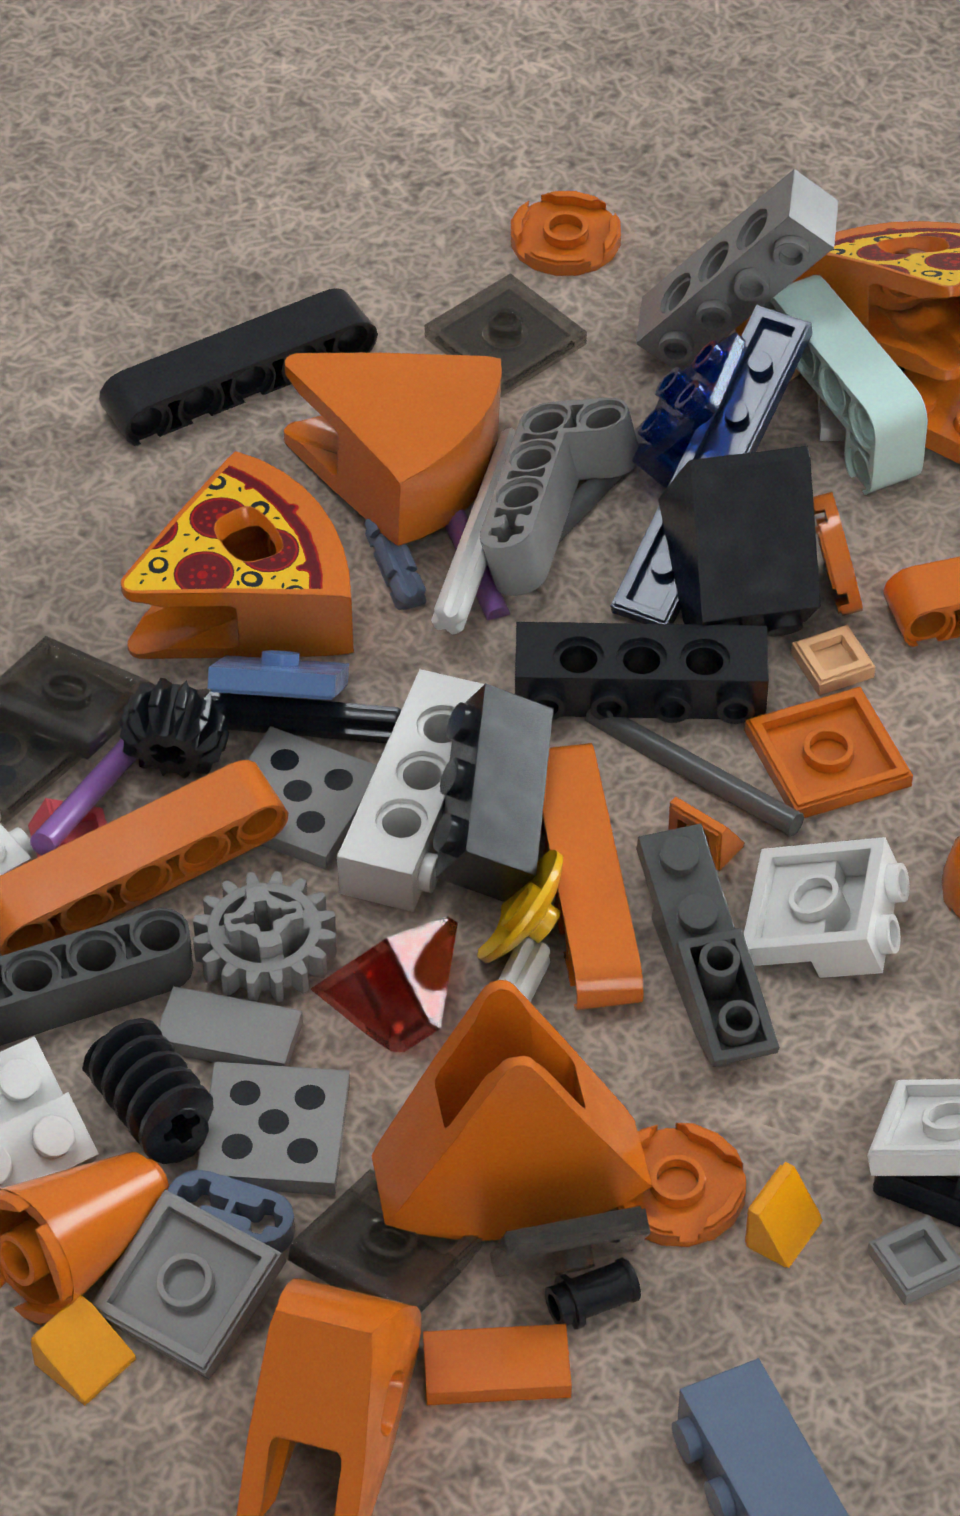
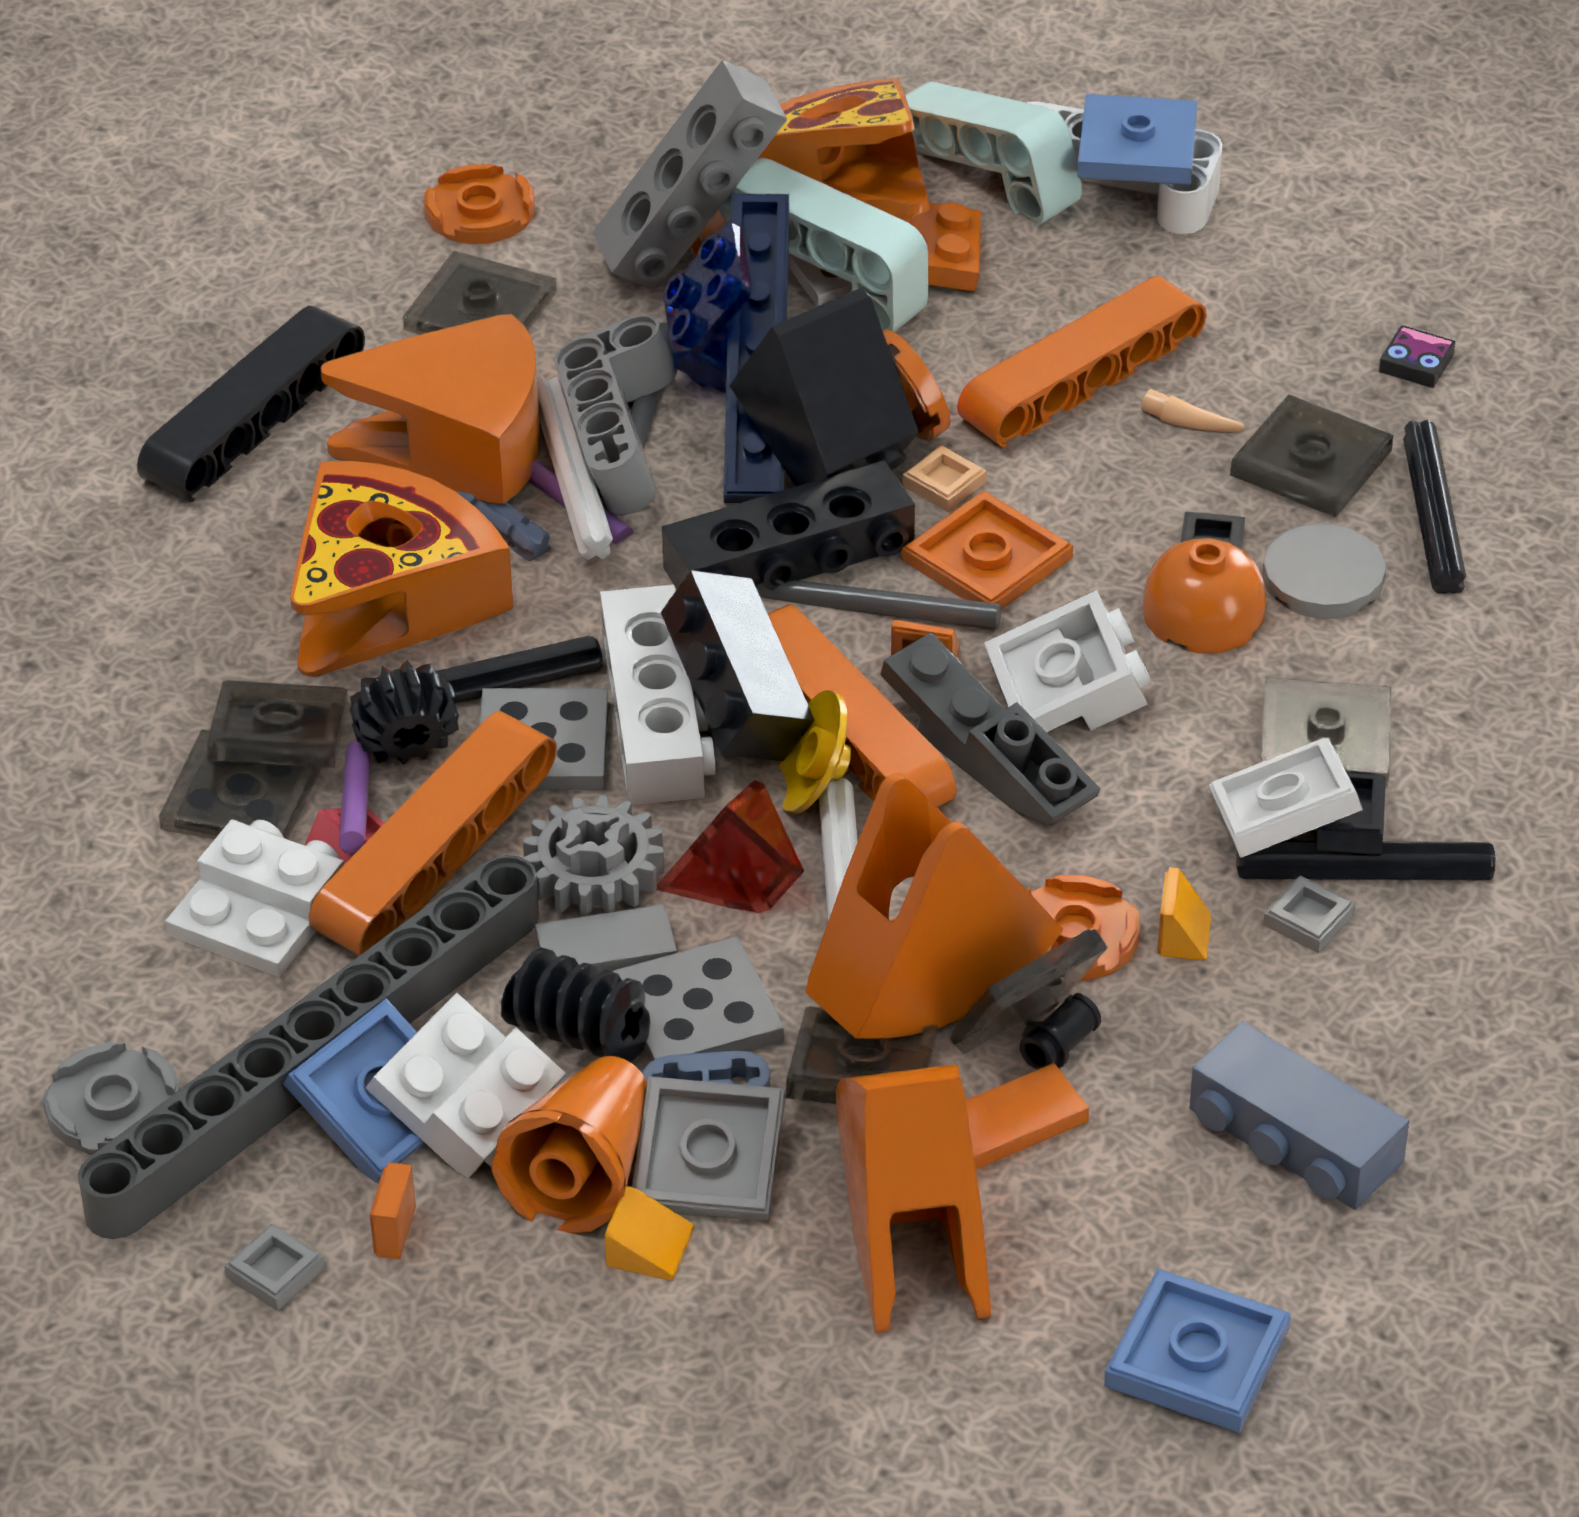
camera: 25 degrees left, 5 degrees down
(278, 675) = (473, 637): medium blue plate -> none

